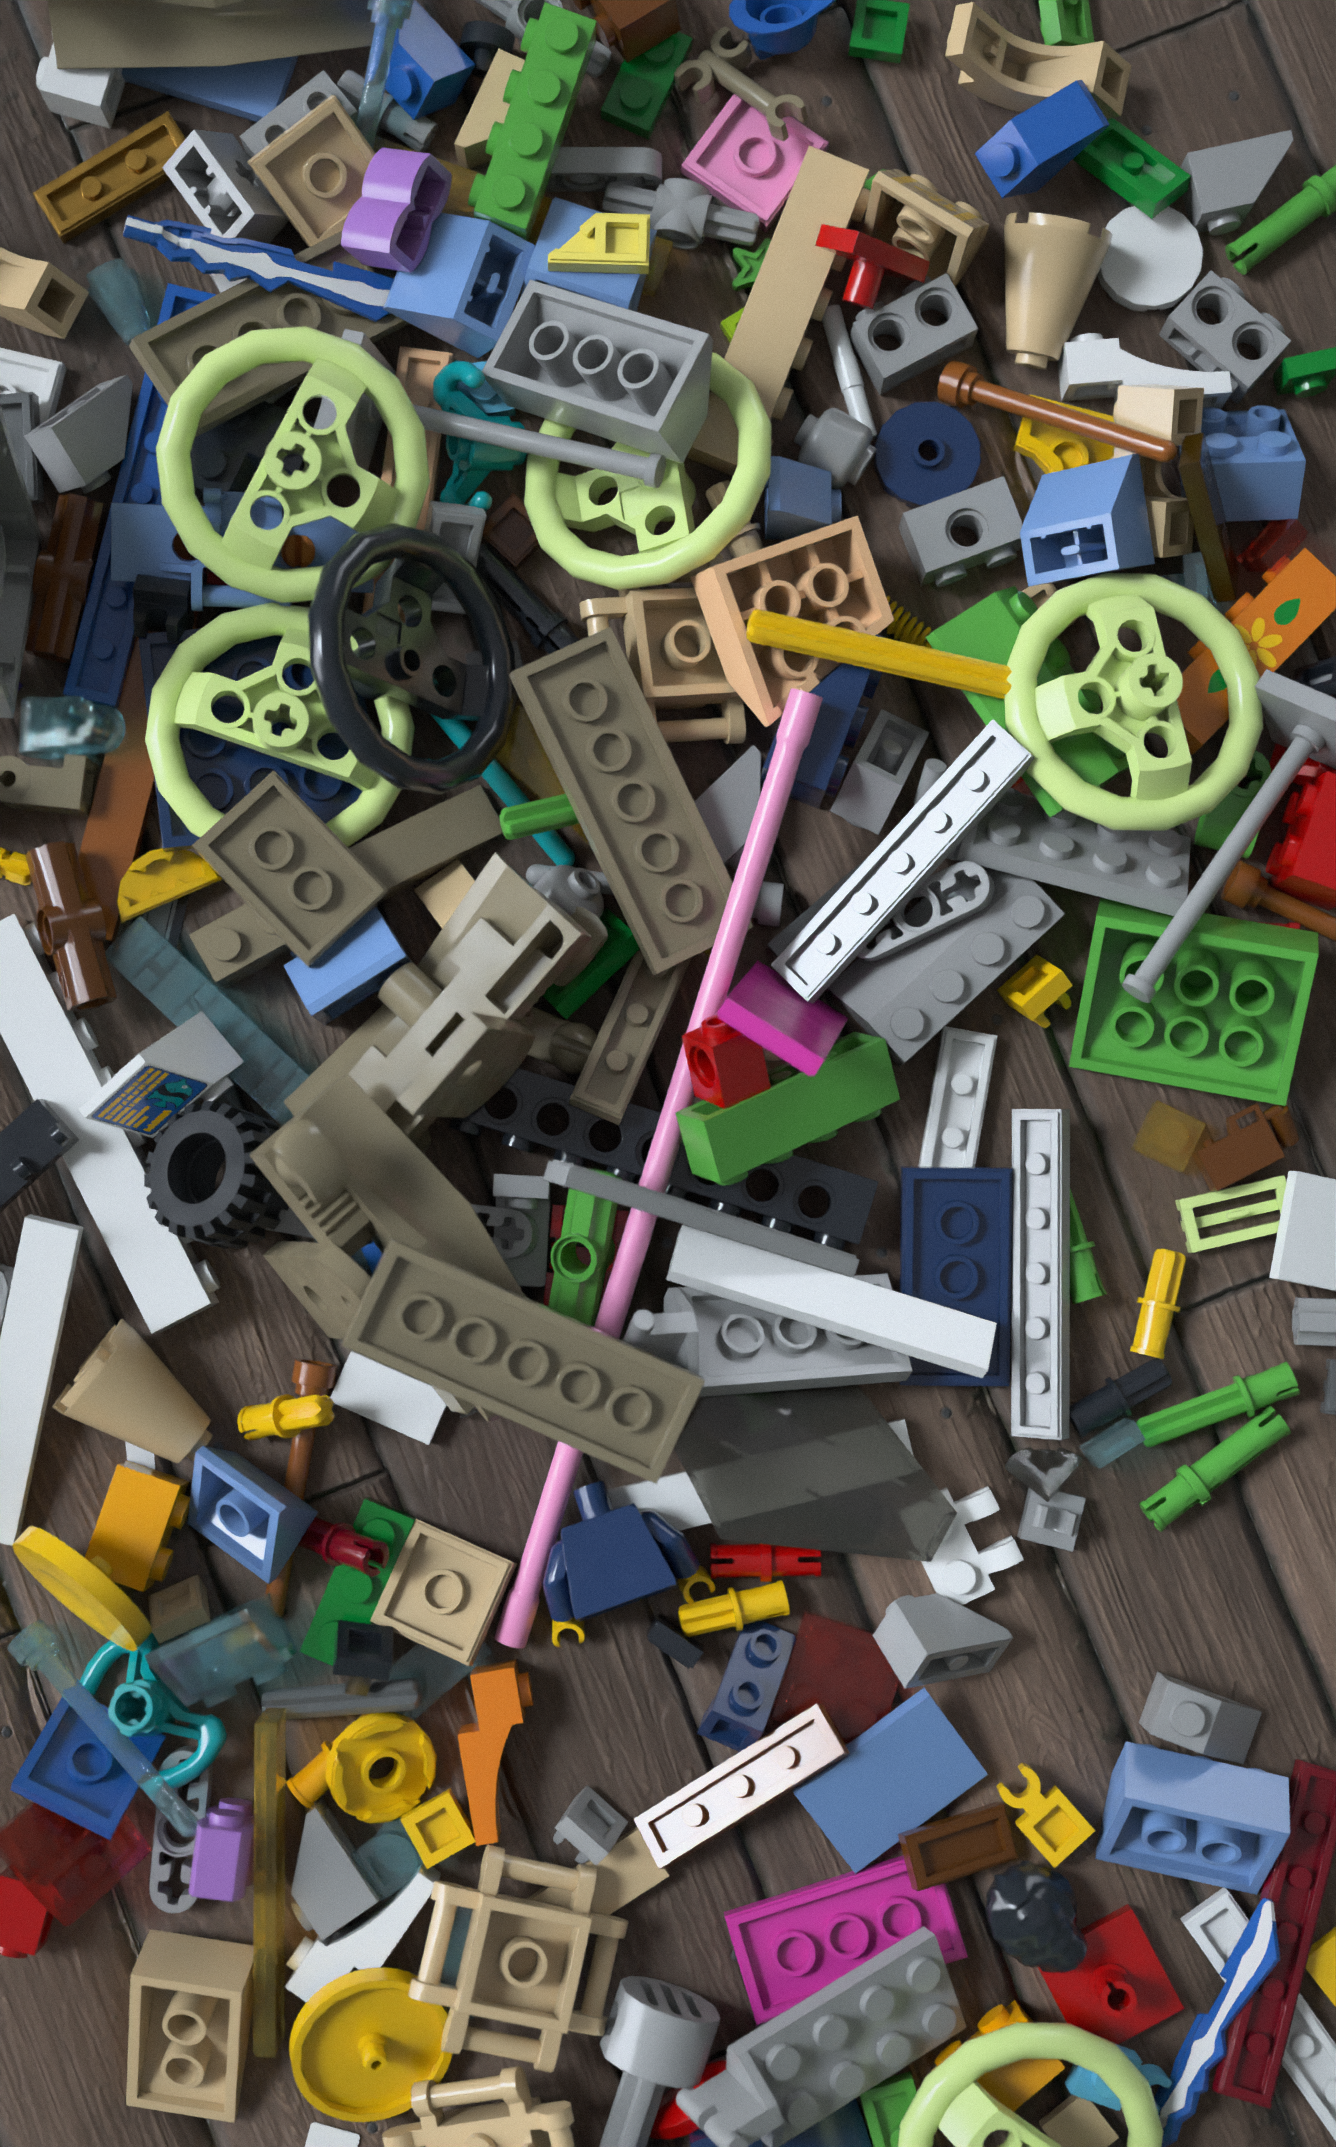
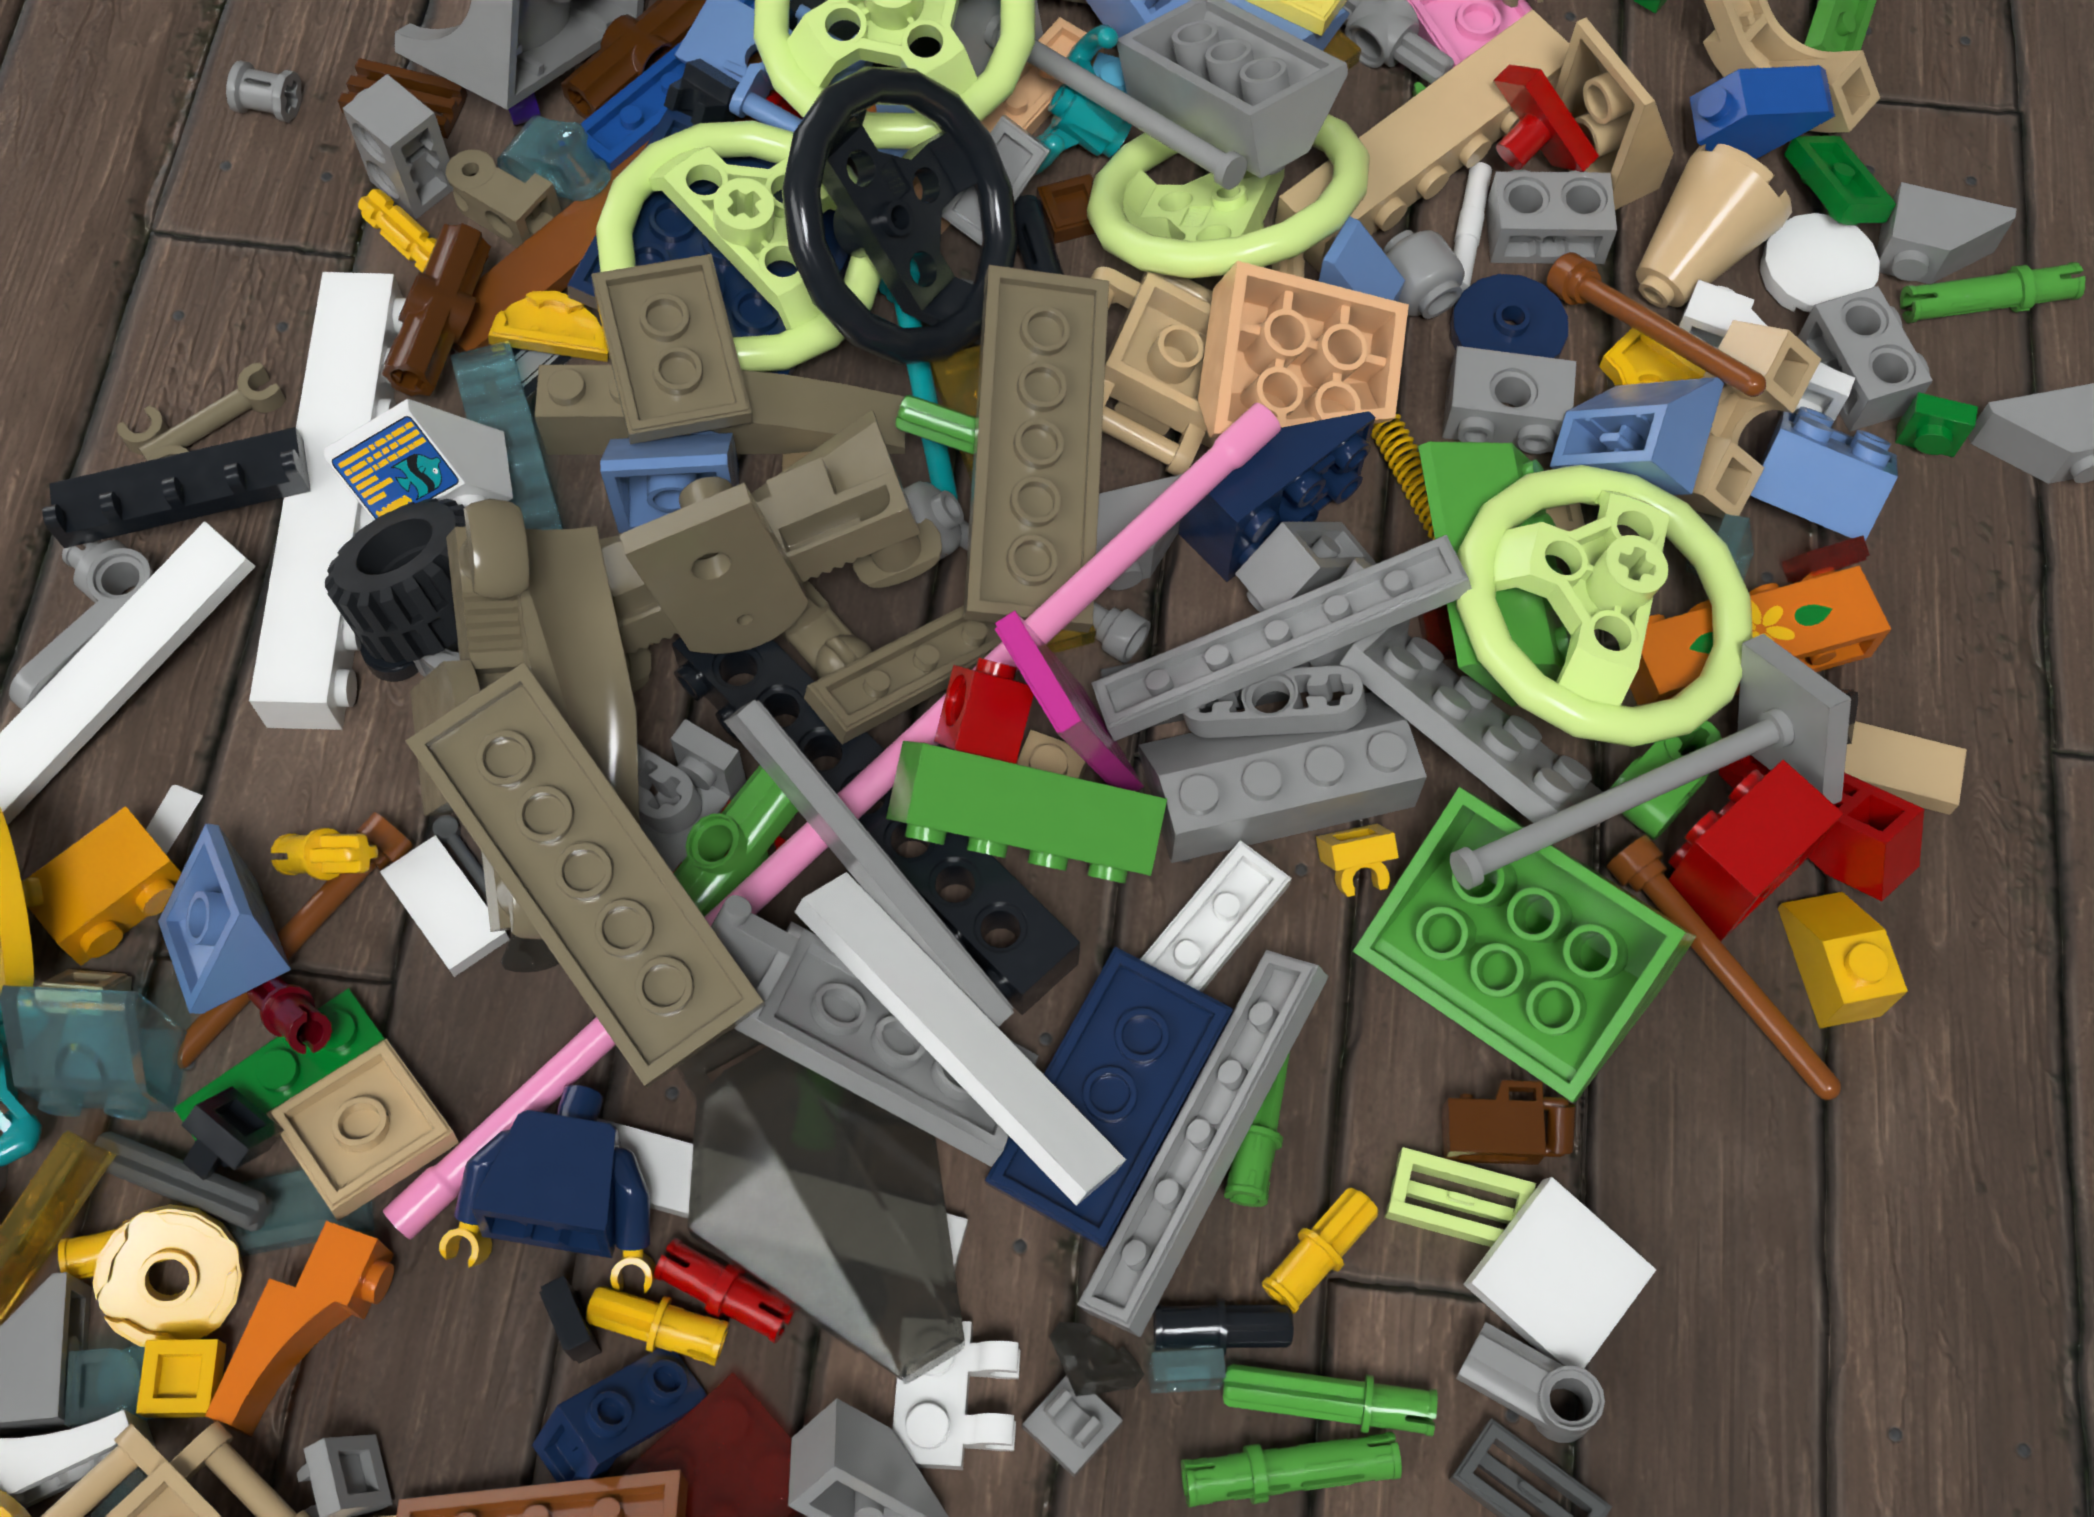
camera: 30 degrees right, 20 degrees down
(135, 1398) = (188, 750): tan cone -> none
(611, 957) = (930, 594): green plate -> none
(878, 653) = (1361, 420): yellow axle -> none
(1168, 1136) = (1424, 1078): clear yellow plate -> none
(1209, 517) = (1770, 484): dark brown tile -> none

